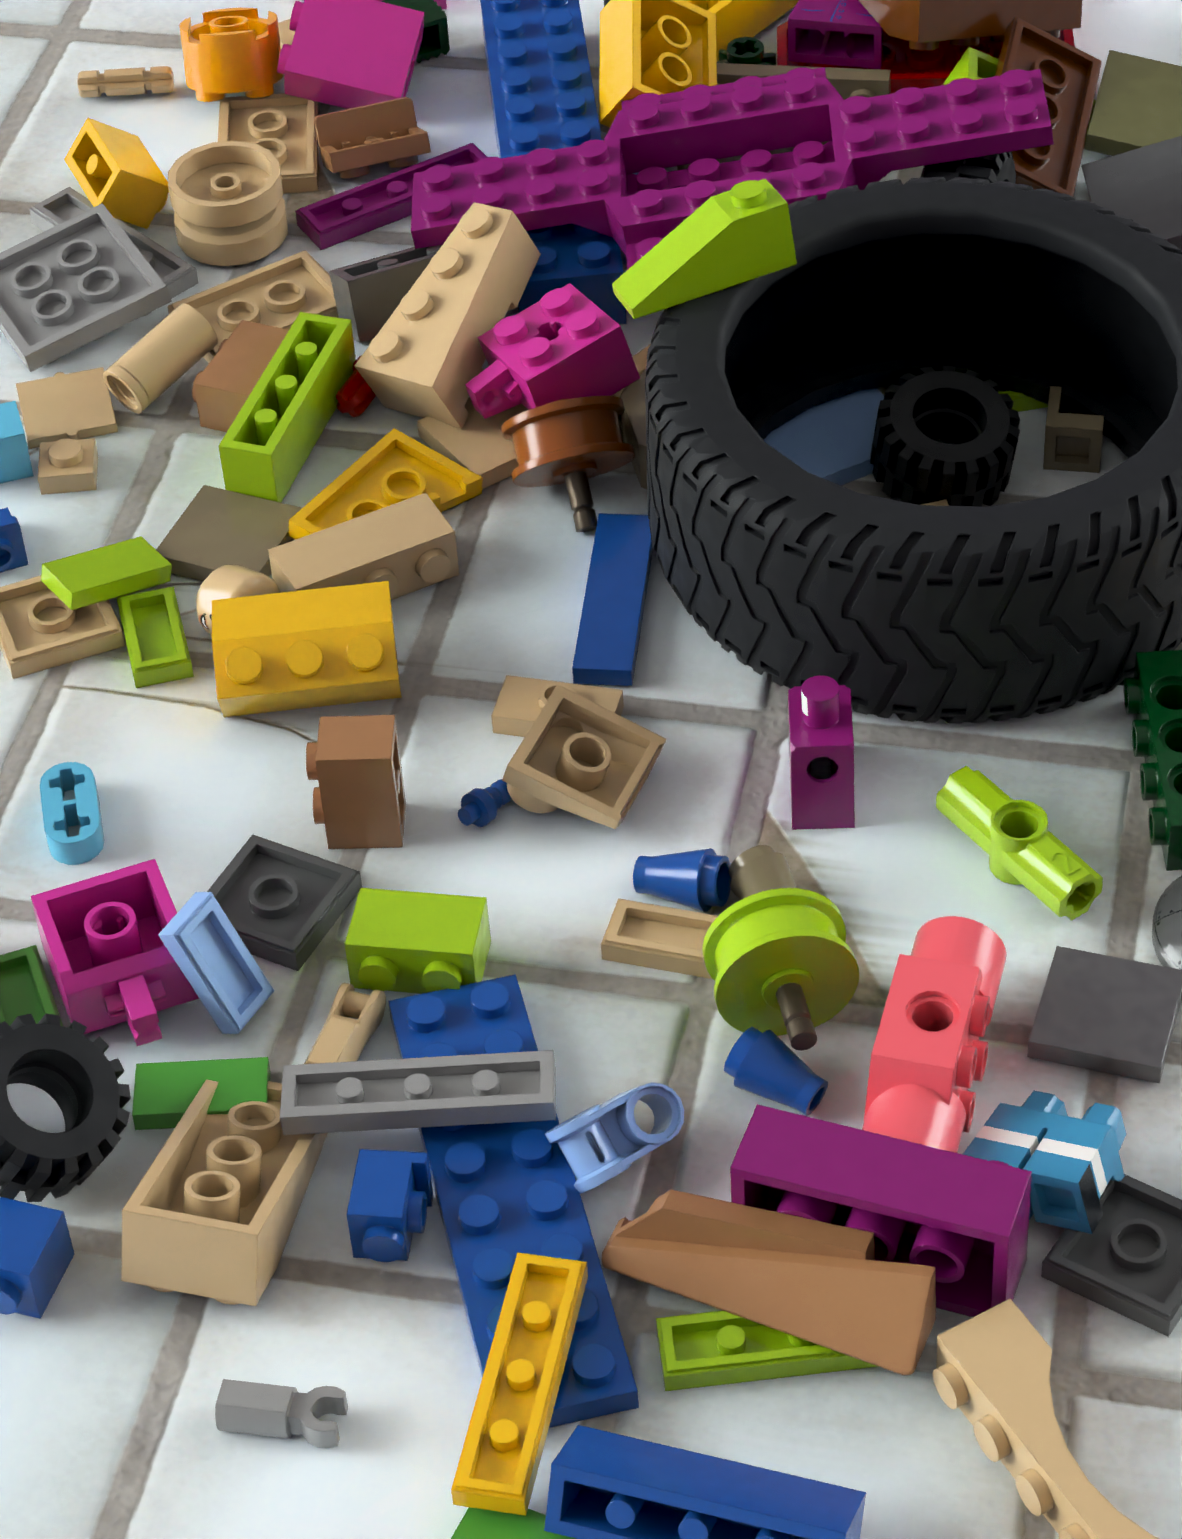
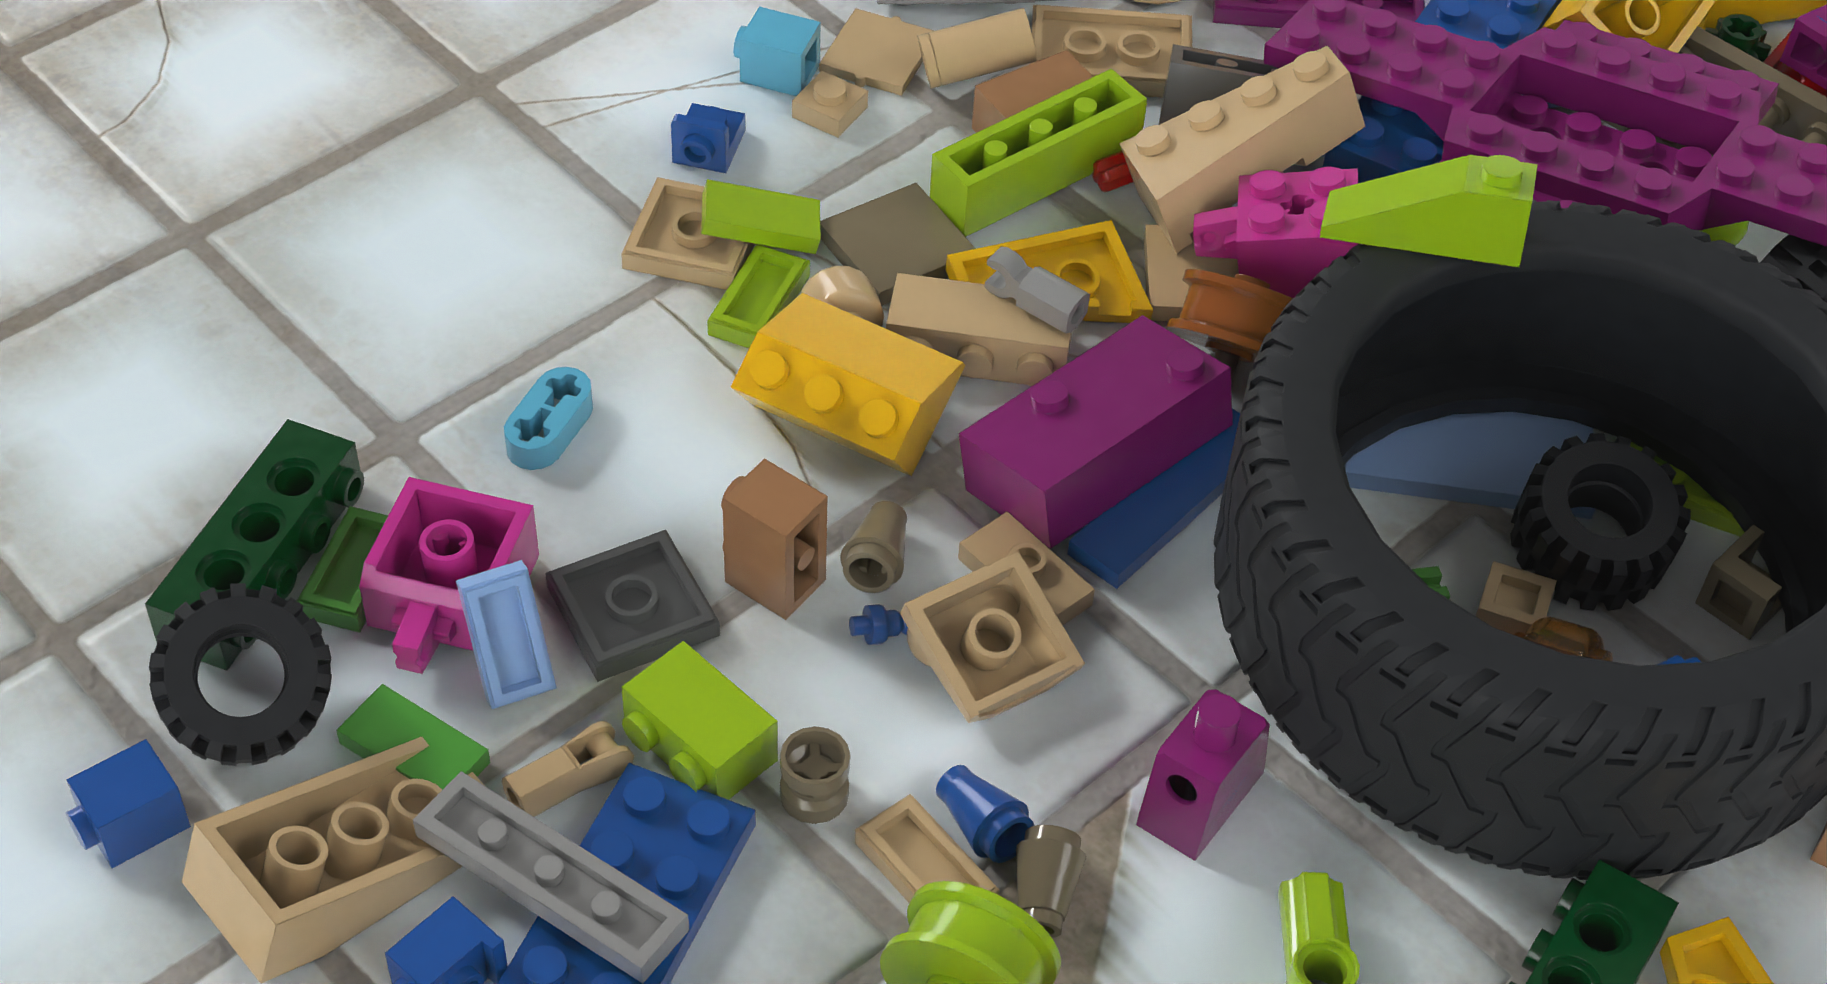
camera: 30 degrees right, 5 degrees up
(397, 500) = (1037, 290): none -> light grey bar
(433, 755) = (876, 550): none -> dark tan cone
(527, 577) = (1096, 430): none -> magenta brick
(539, 924) = (814, 774): none -> dark tan wheel

